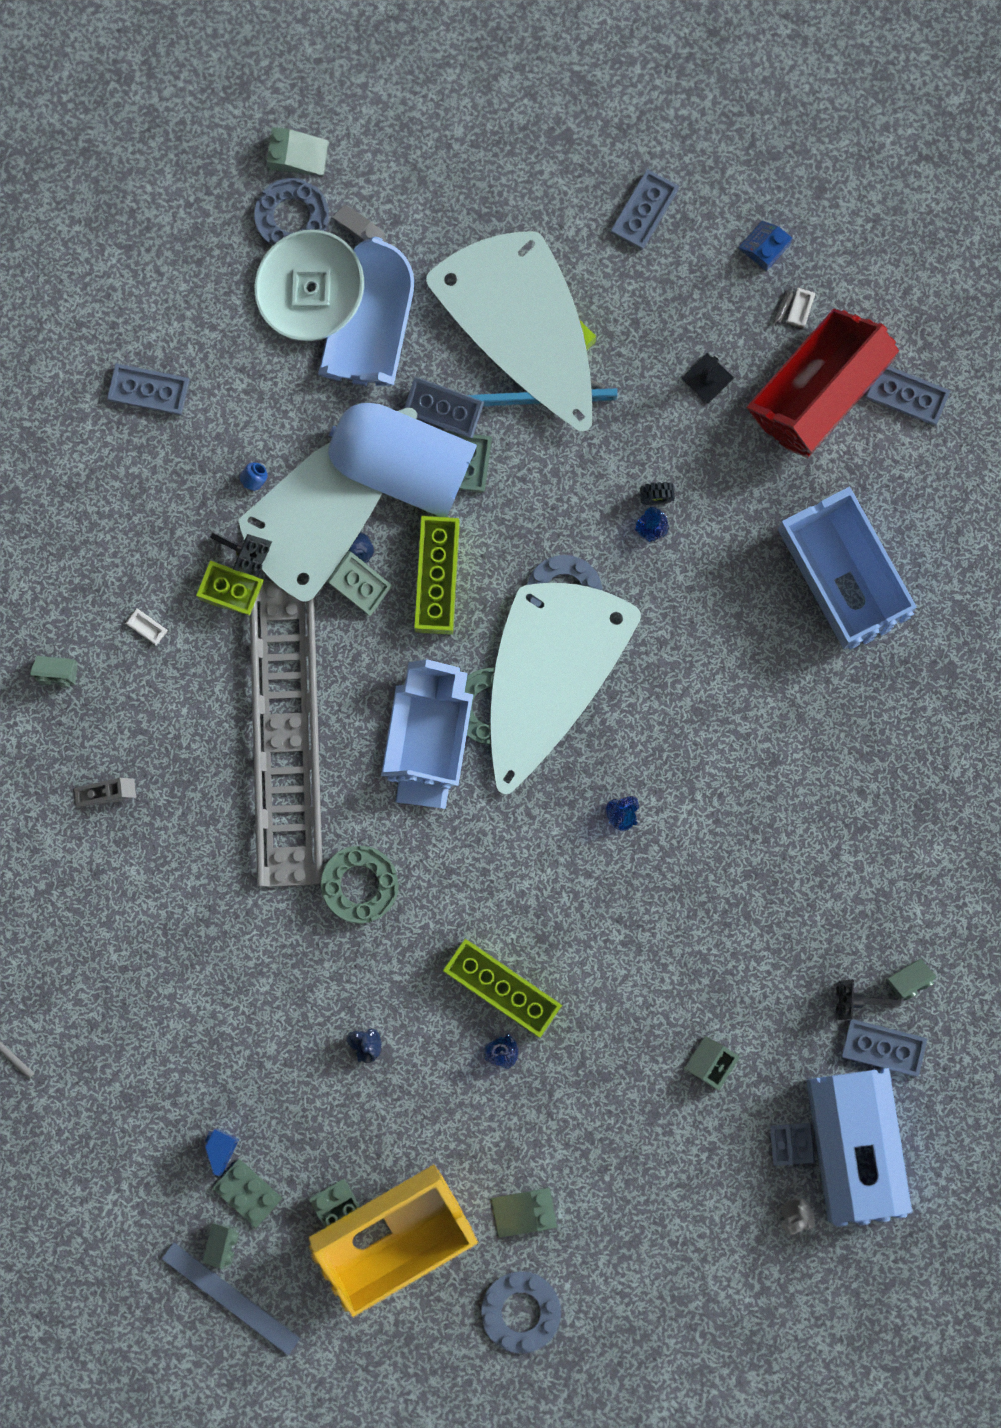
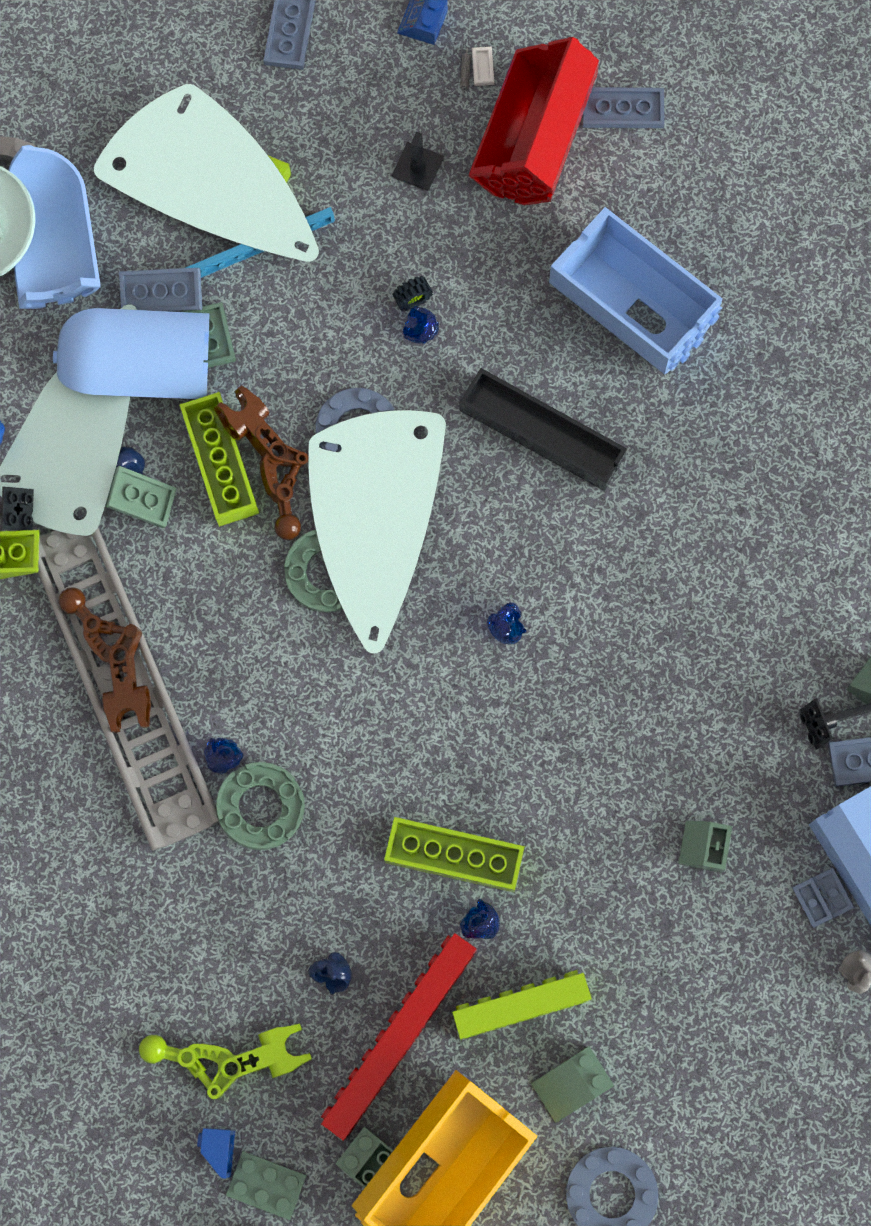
camera: 20 degrees left, 5 degrees down
(284, 747) = (125, 693): none -> reddish brown piece
(291, 1091) = (270, 1054): none -> lime piece
(337, 829) = (217, 749): none -> clear blue hair
(399, 1118) = (399, 1036): none -> red brick
(427, 733) = (271, 621): light blue panel -> none
(475, 556) = (251, 424): none -> reddish brown piece
(508, 1133) = (521, 1006): none -> lime brick
(720, 656) = (542, 429): none -> black piece

